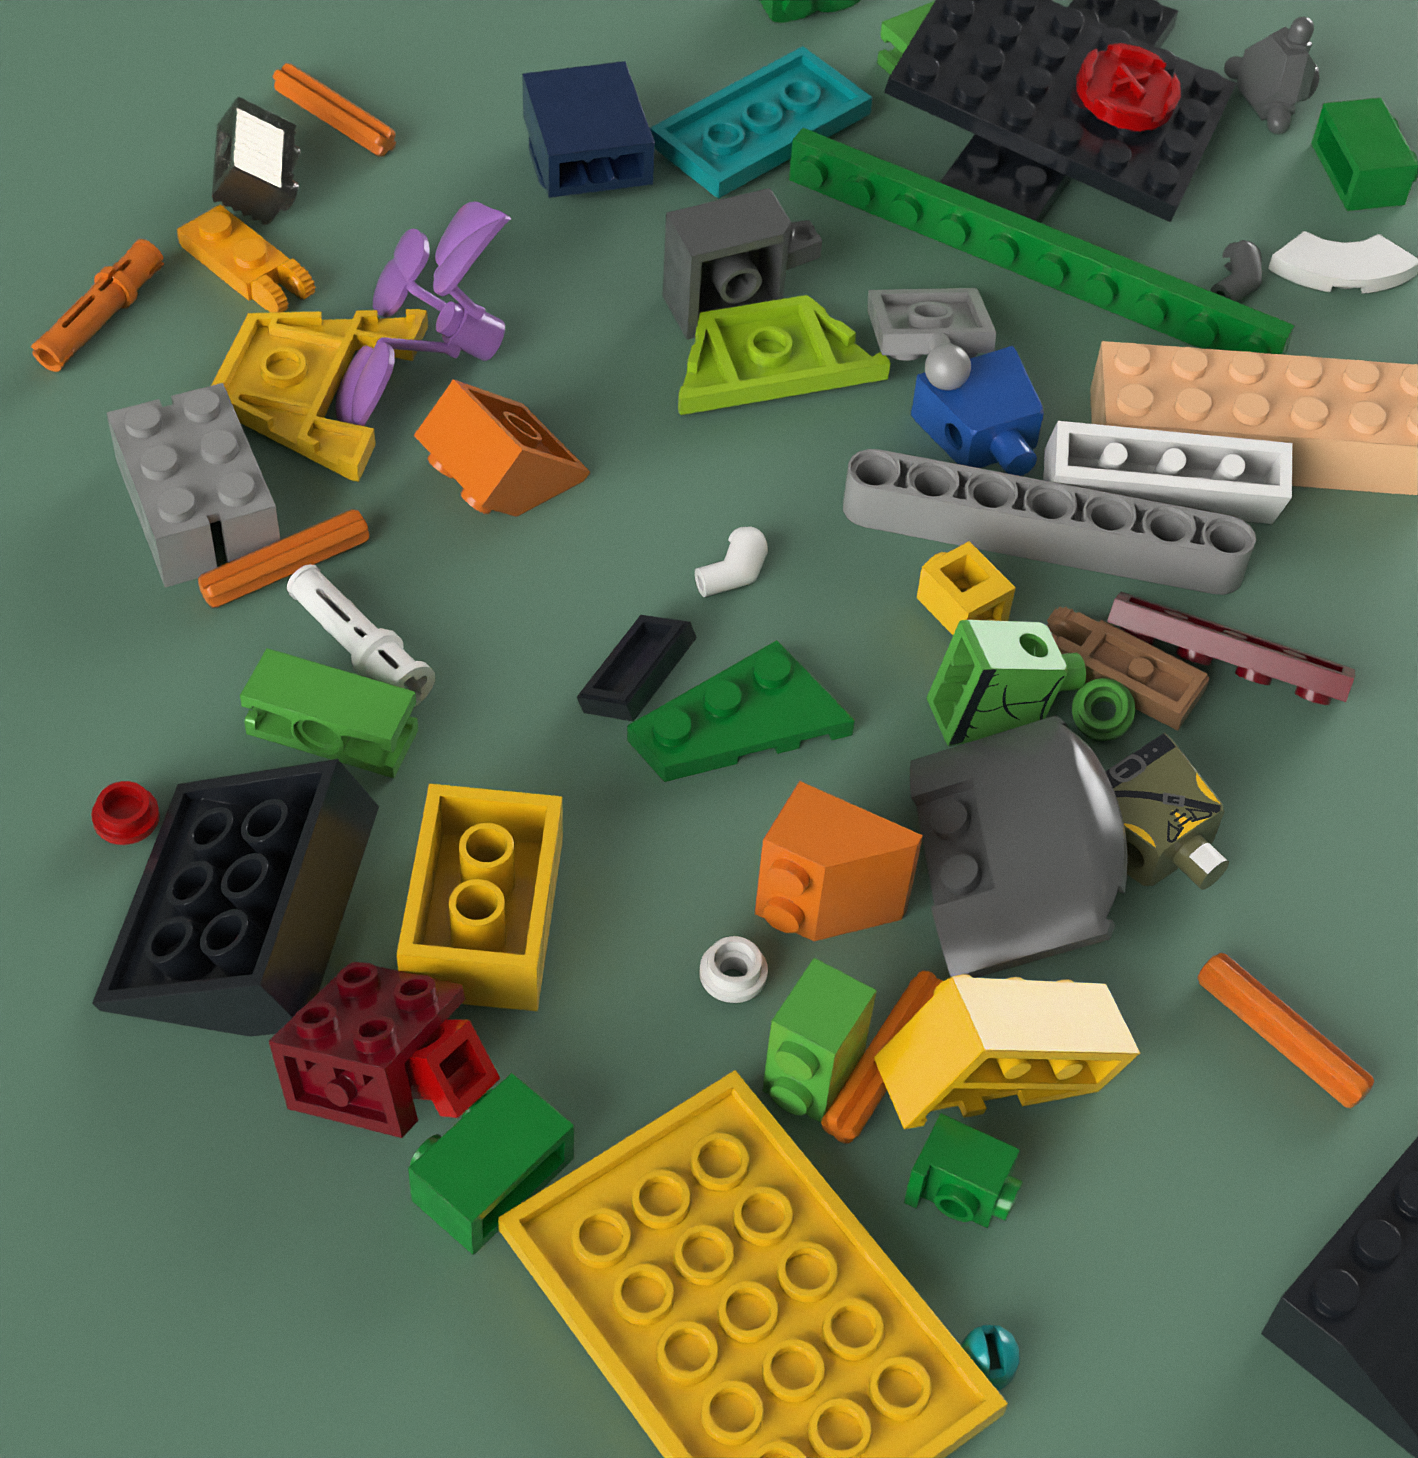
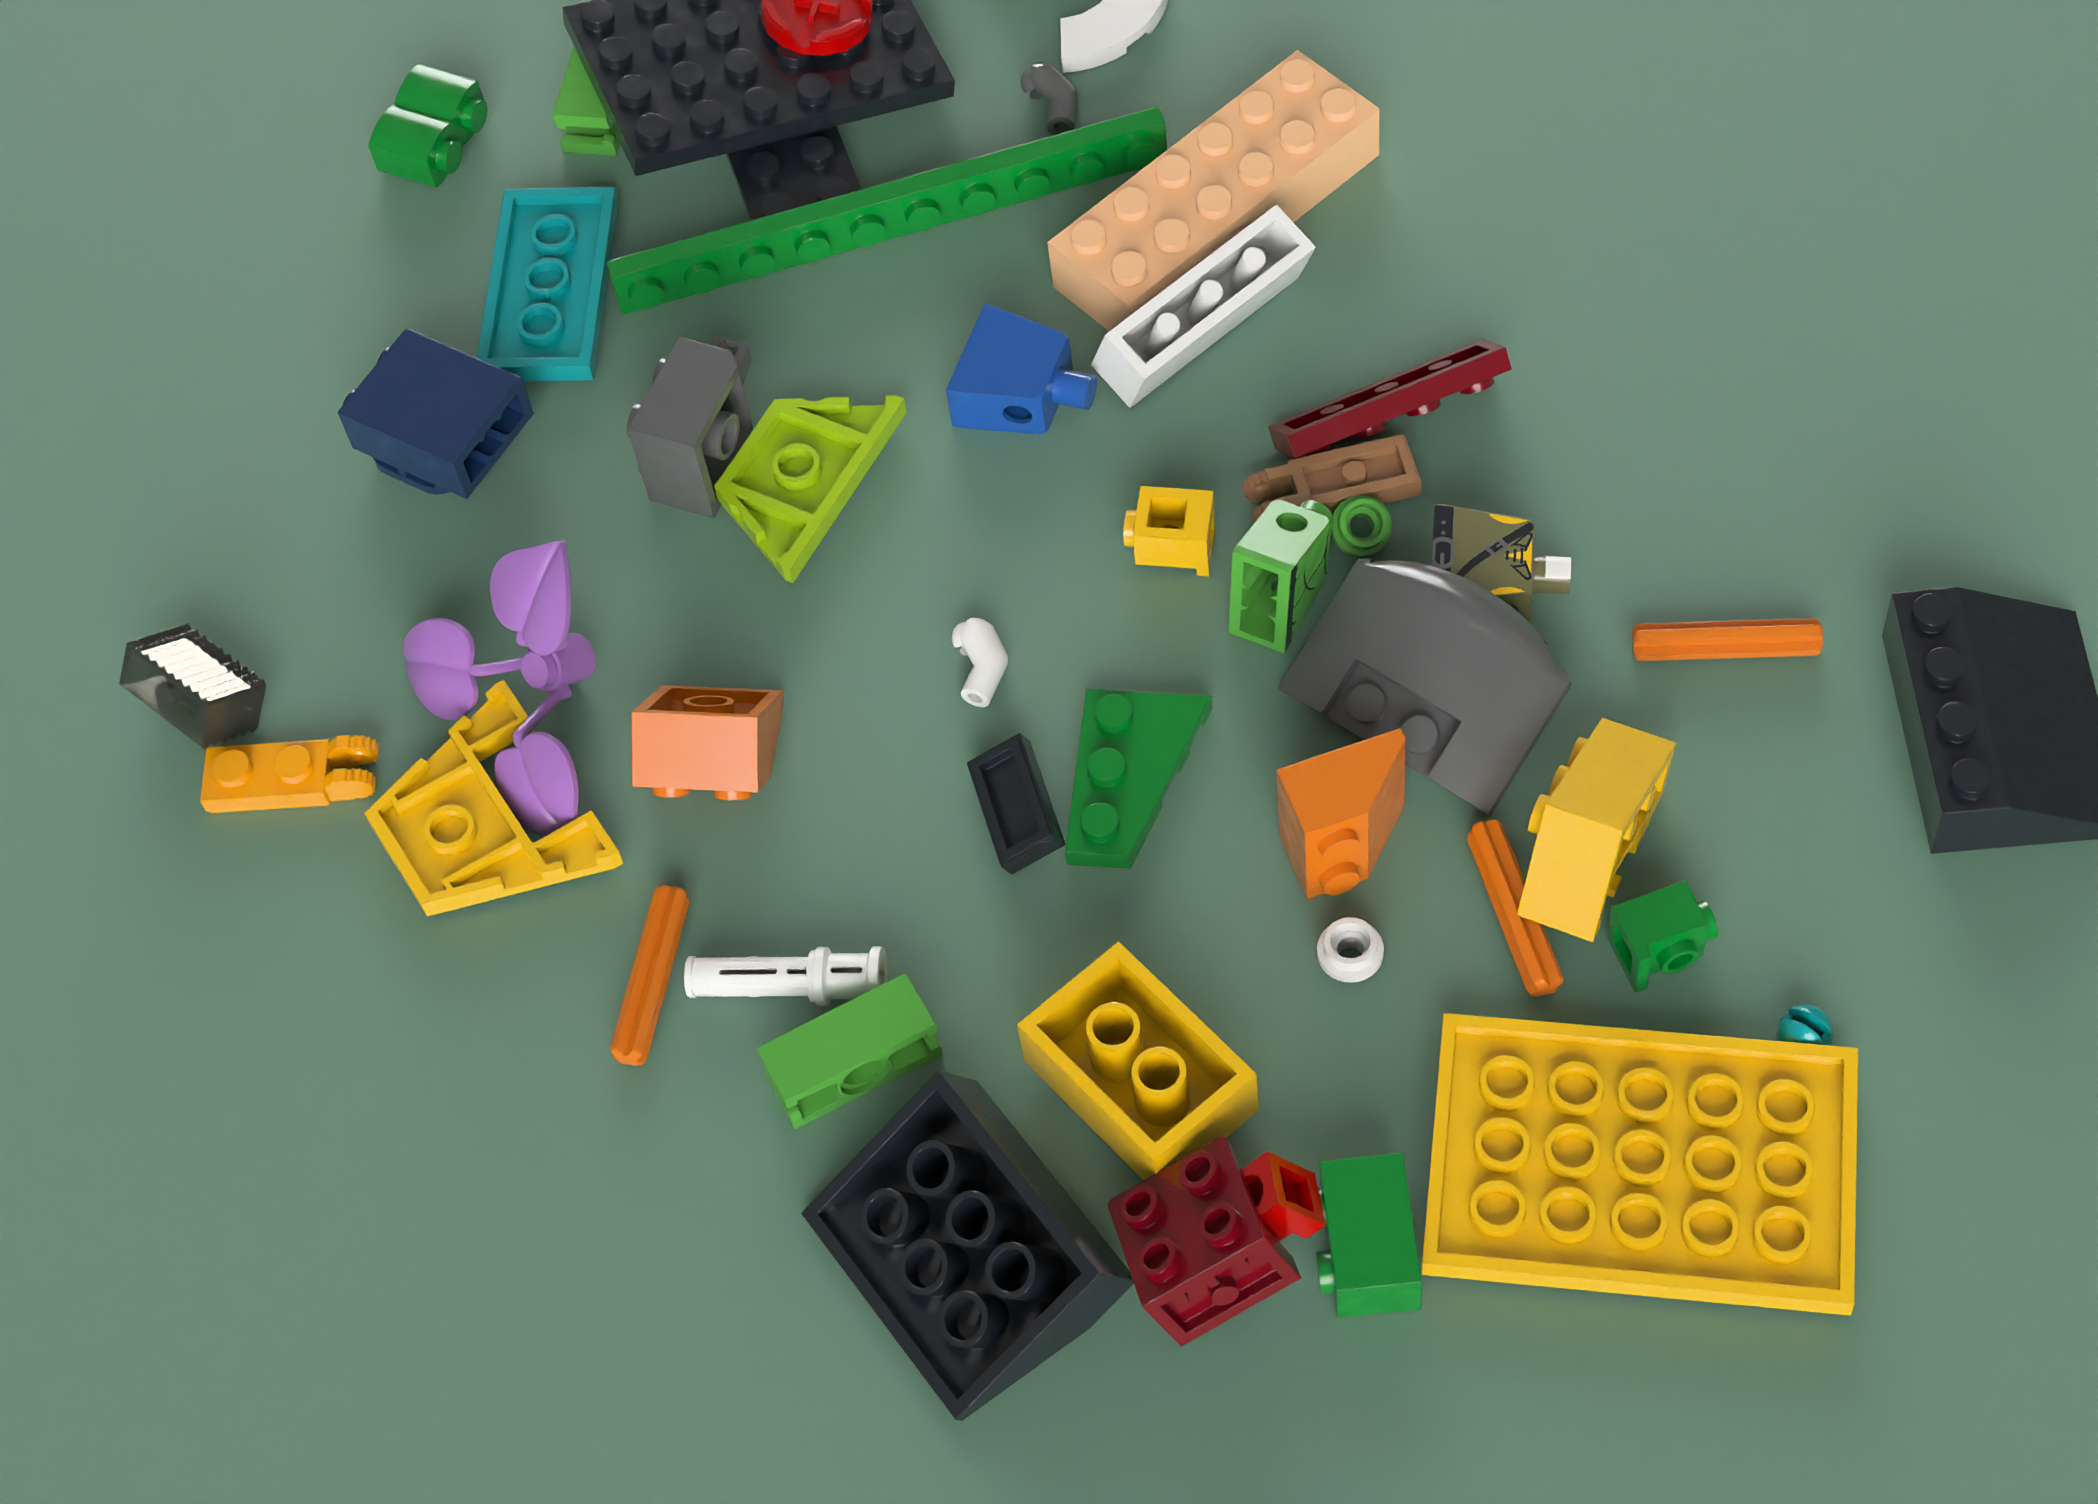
camera: 35 degrees left, 5 degrees up
(113, 289) = (212, 861): orange pin -> none
(125, 813) = (797, 1271): red plate -> none
(190, 470) = (512, 984): light grey piece -> none
(334, 110) = (183, 582): orange axle -> none
(817, 1039) = (1482, 938): bright green brick -> none
(936, 322) = (899, 336): light grey plate -> none
(1048, 521) = (1157, 422): light grey beam -> none

